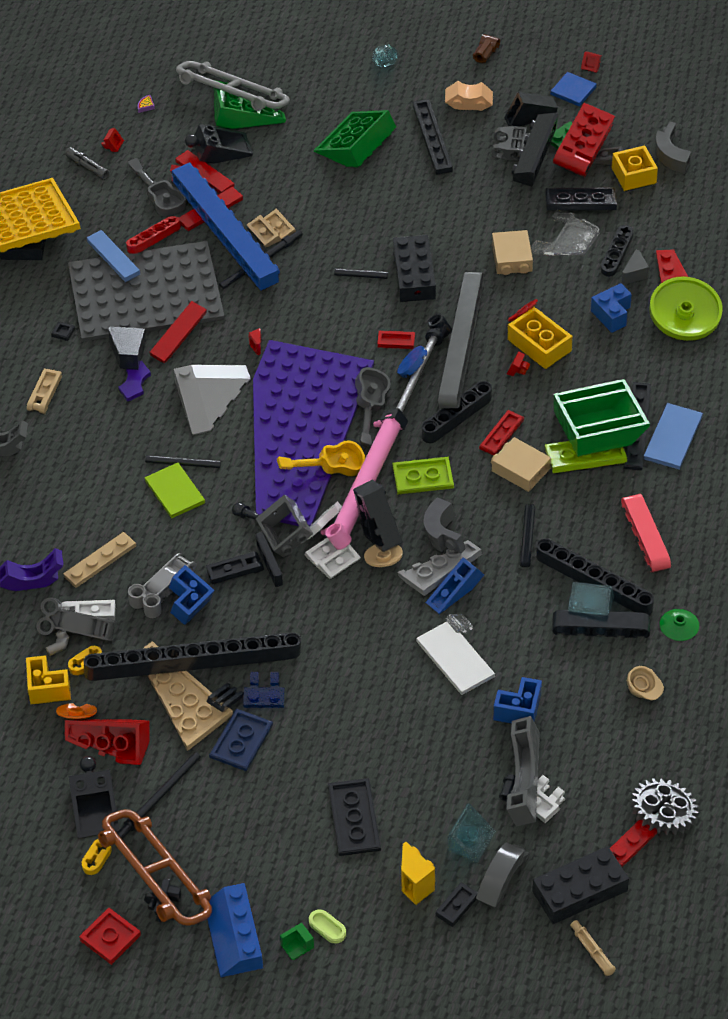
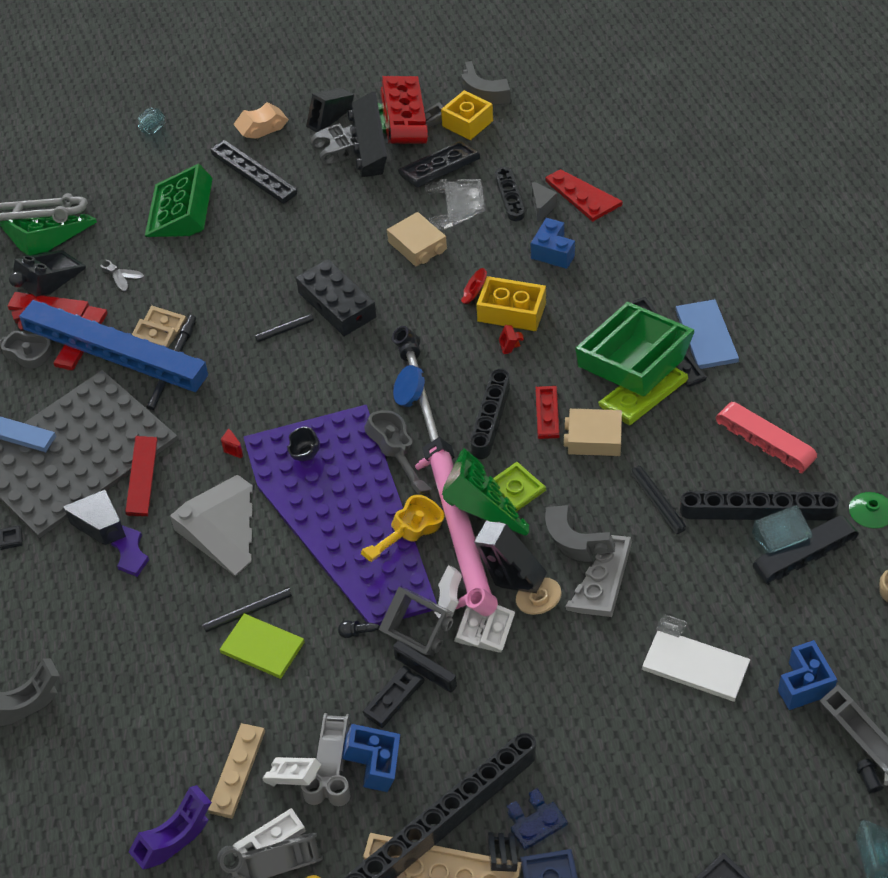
camera: 30 degrees left, 0 degrees up
(44, 390) = (36, 612): tan plate -> none
(129, 576) = (292, 771): none -> white plate
(153, 235) = (40, 391): red beam -> none
(273, 173) = (120, 274): none -> flat silver piece
(302, 365) = (303, 444): none -> black hair
(395, 463) = (479, 494): none -> green slope
(396, 339) = (370, 373): red tile -> none
(455, 585) = (635, 590): blue slope -> none
(461, 340) = (442, 344): dark grey beam -> none
(486, 47) = (241, 74): reddish brown piece -> none
(573, 89) = (350, 75): blue tile -> none
(591, 62) = (348, 45): red tile -> none
(685, 308) = (620, 213): lime dish -> none

